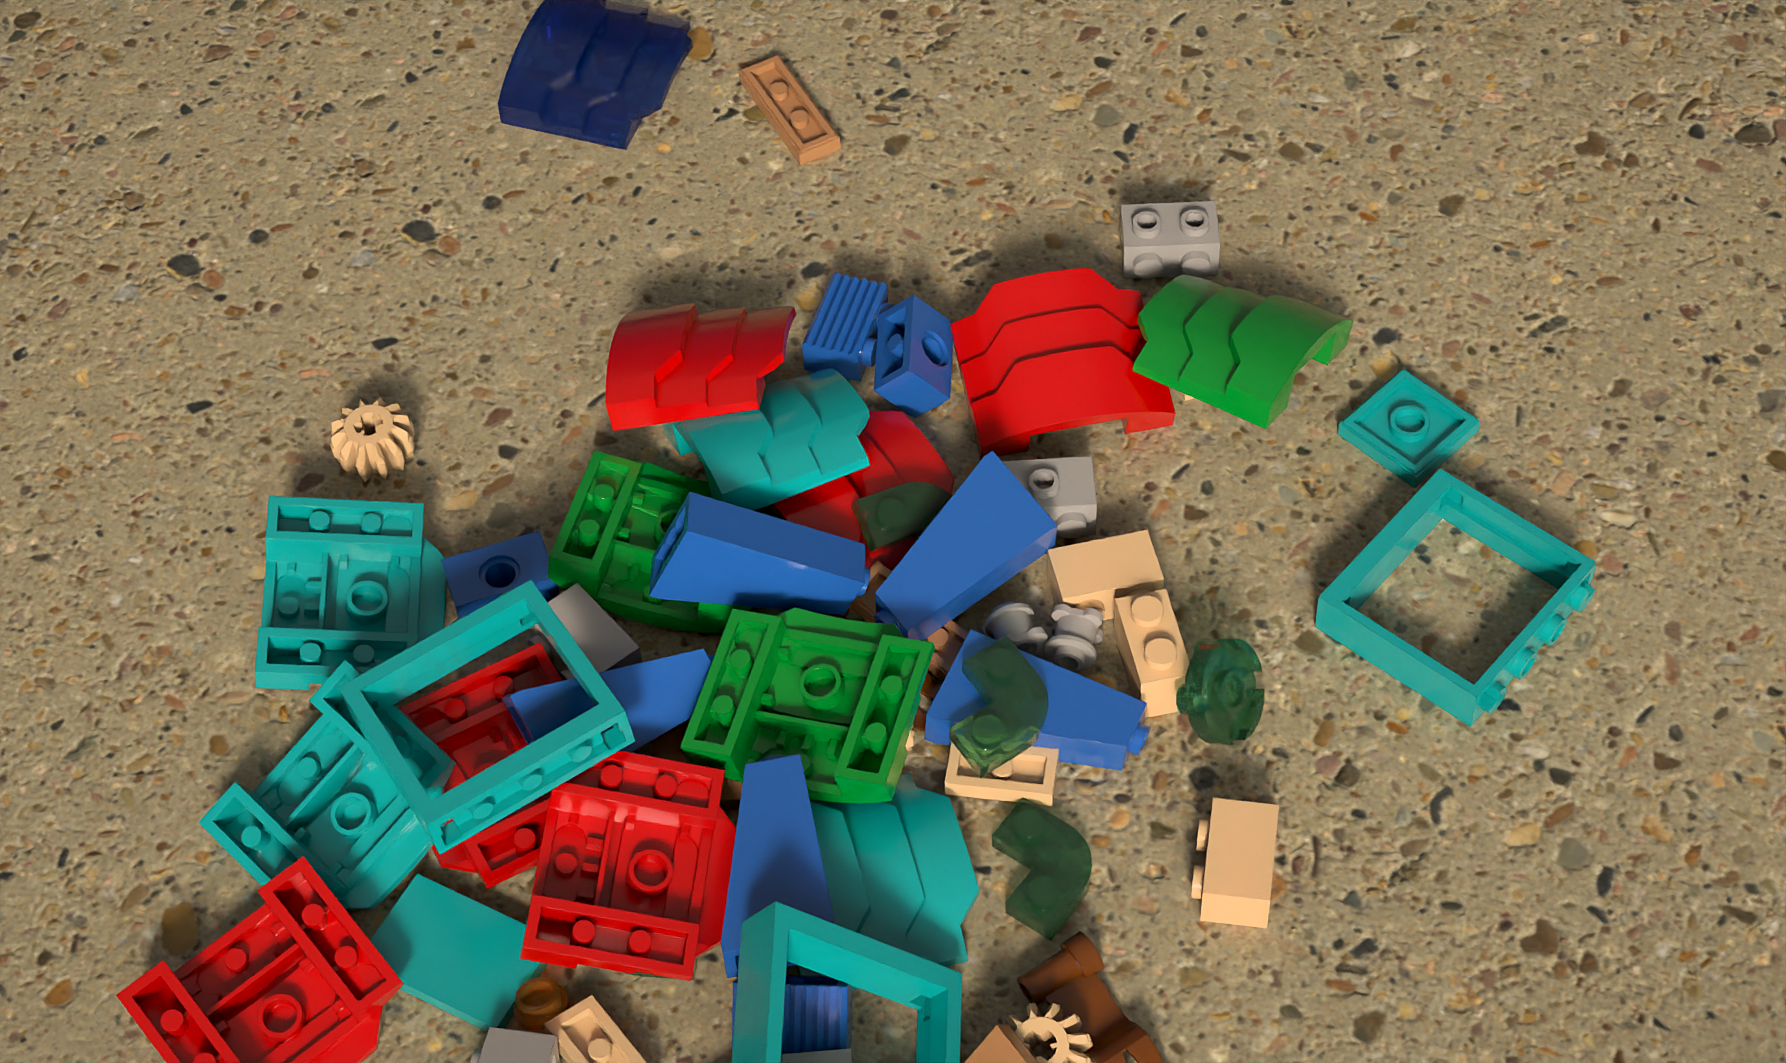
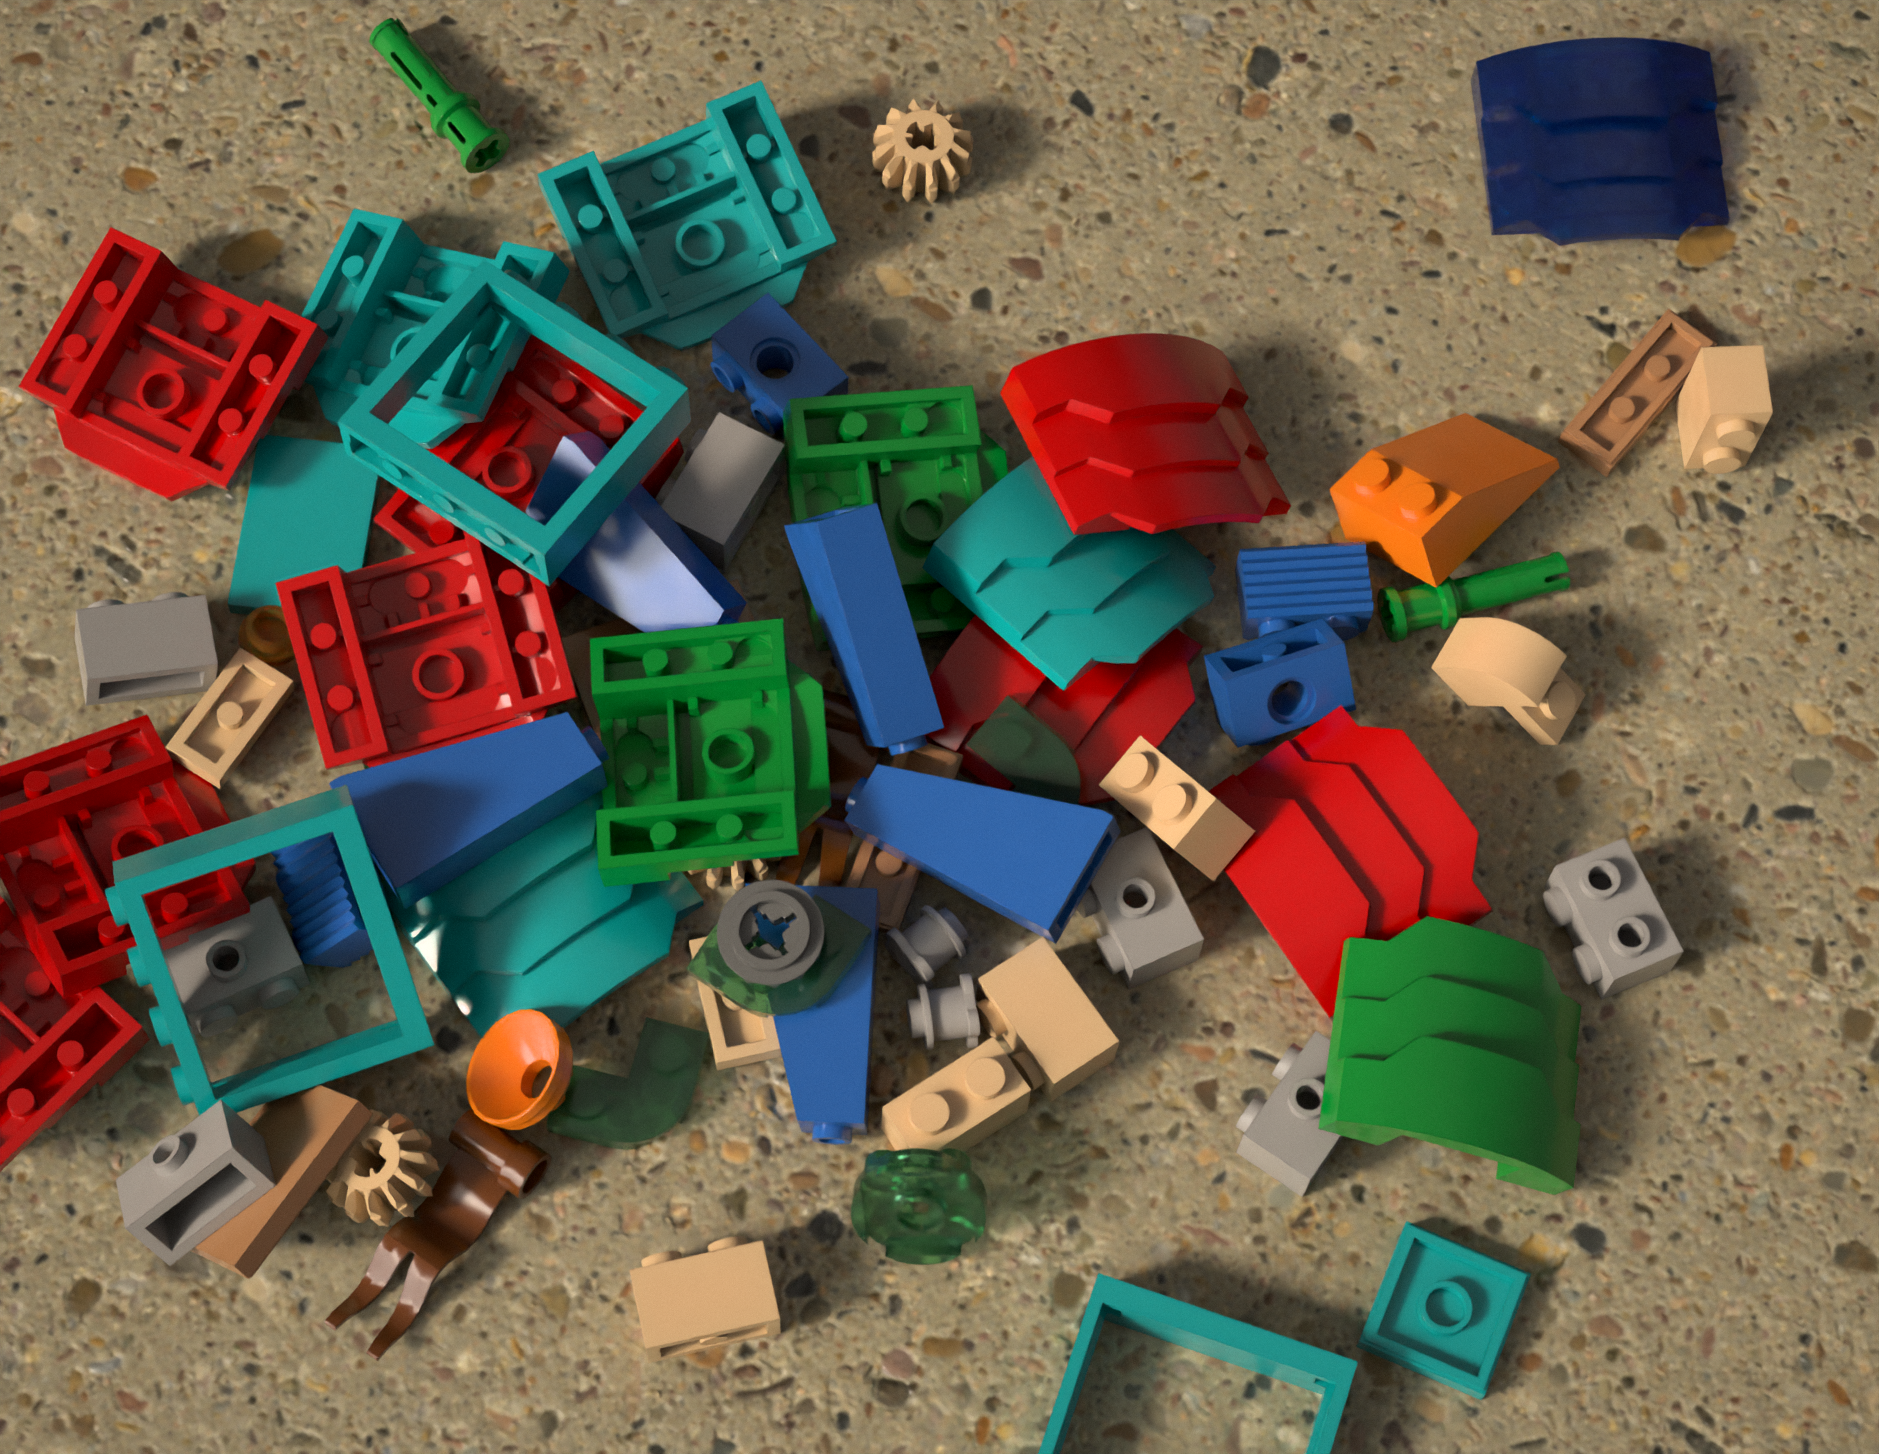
camera: 60 degrees right, 15 degrees up
(155, 734) = (453, 112): none -> green pin
(818, 226) = (1438, 494): none -> orange slope
(836, 54) = (1723, 407): none -> tan brick
(892, 253) = (1443, 606): none -> green pin
(964, 229) = (1513, 668): none -> tan brick
(980, 930) = (506, 1067): none -> orange piece
(999, 423) = (1176, 808): none -> tan brick
(1002, 673) = (778, 903): none -> dark grey gear
(1241, 456) = (1283, 1131): none -> light grey brick

